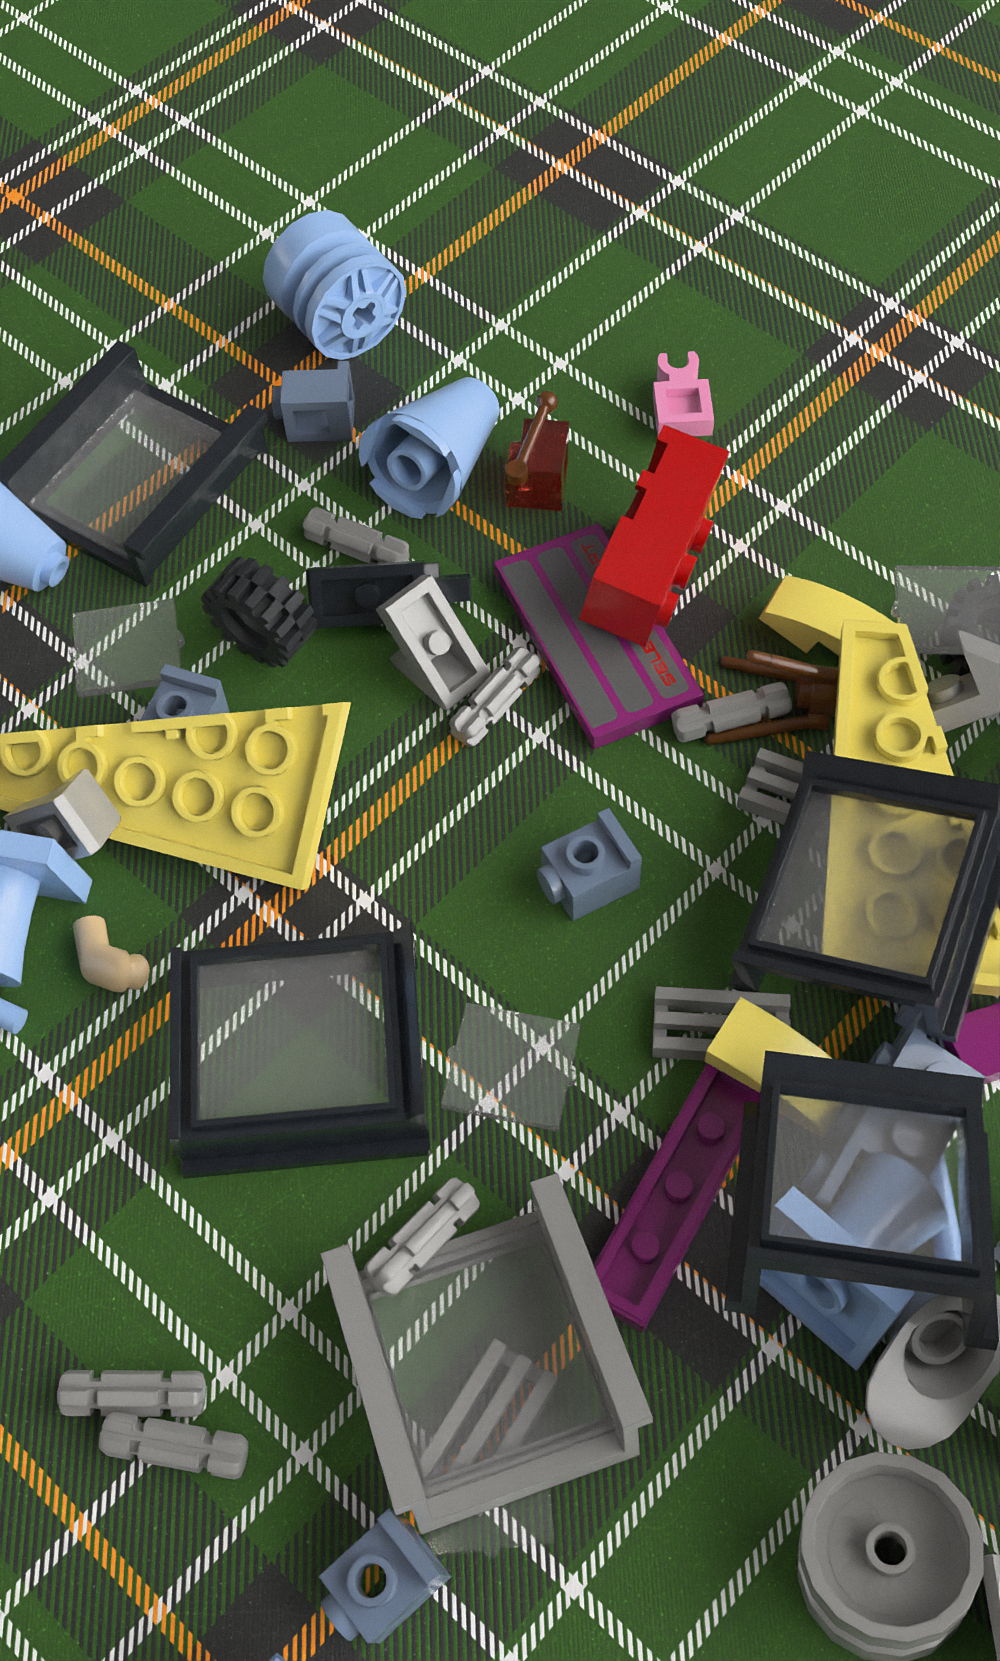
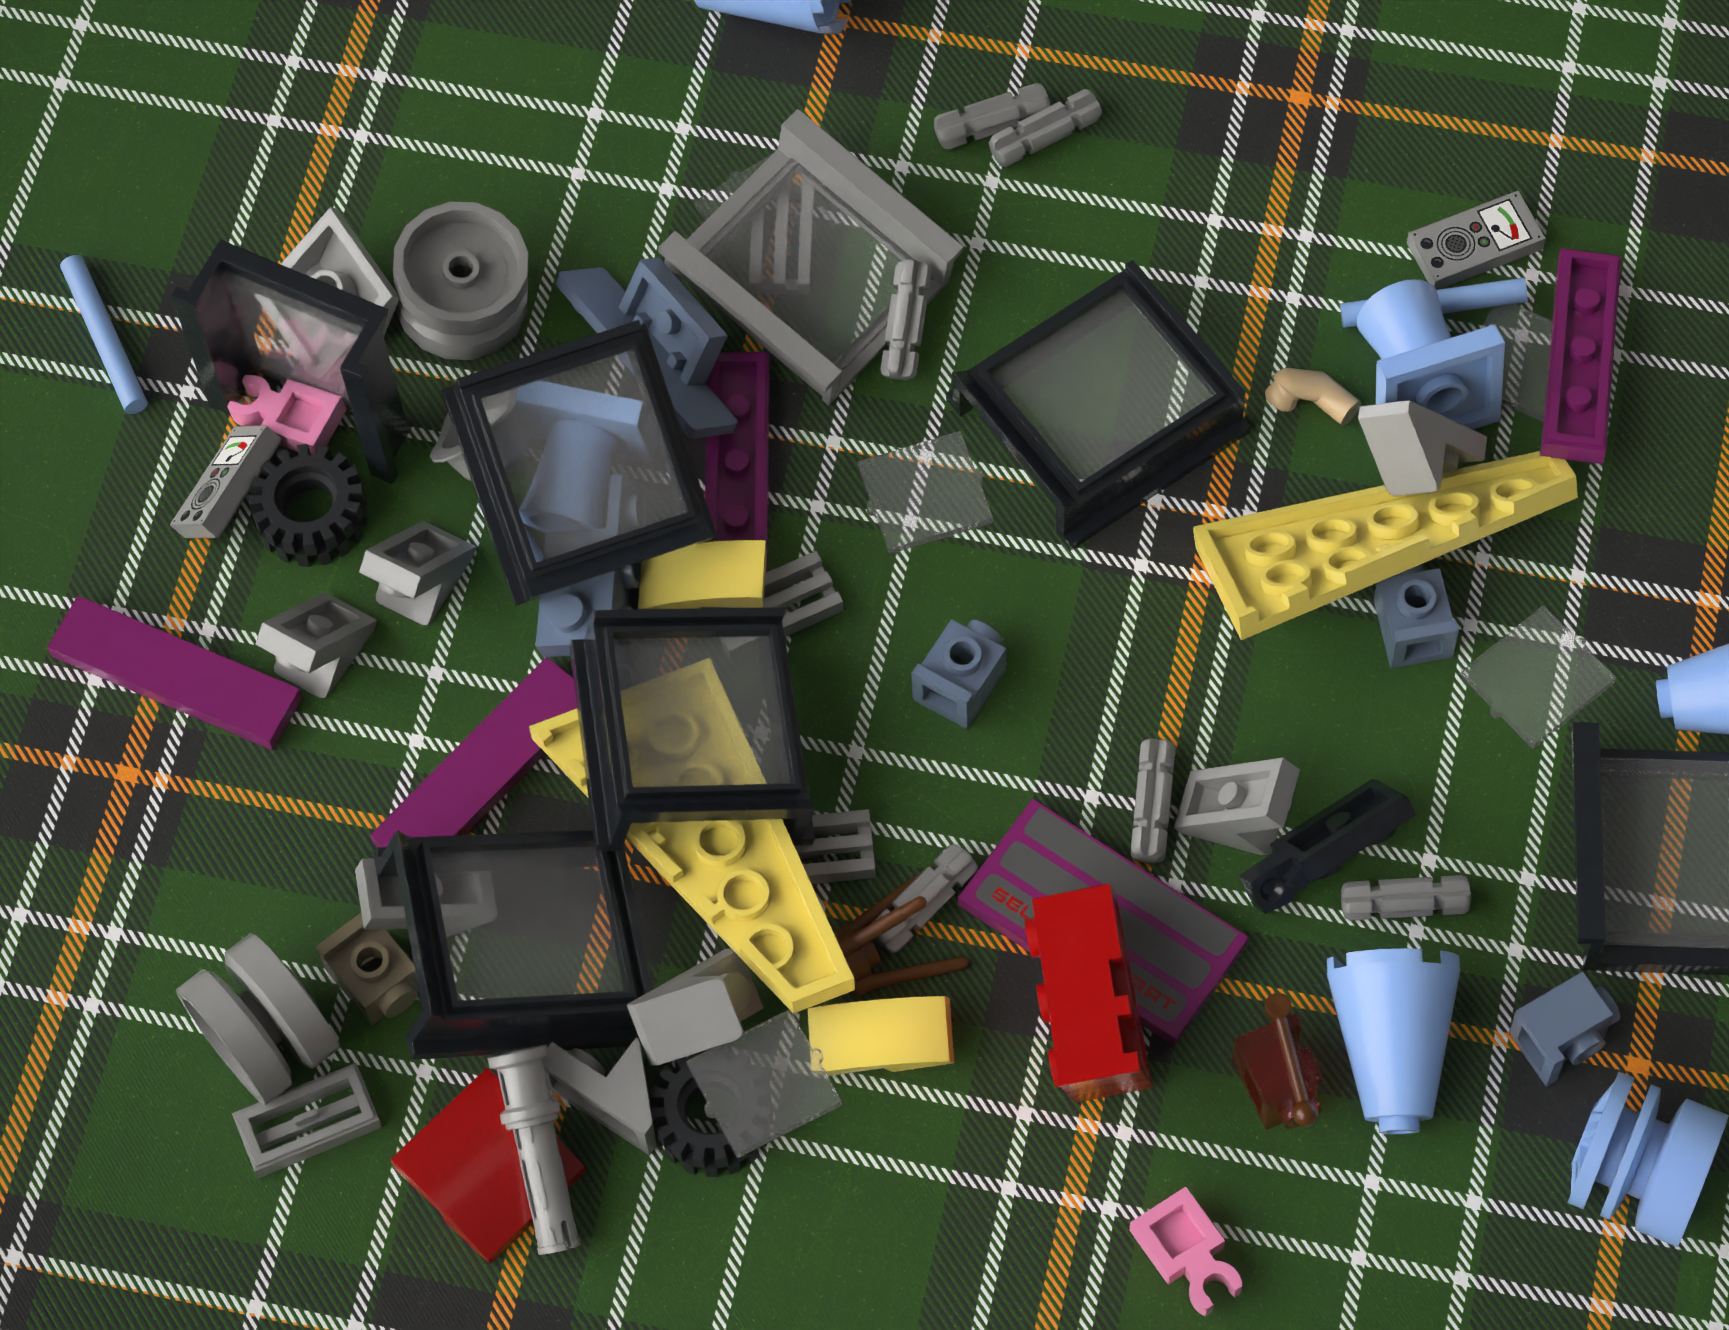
camera: 150 degrees right, 5 degrees up
(259, 612) = (1417, 732): black tyre -> none
(410, 1572) = (784, 93): sand blue brick -> none
(701, 1359) = (679, 329): none -> sand blue bracket

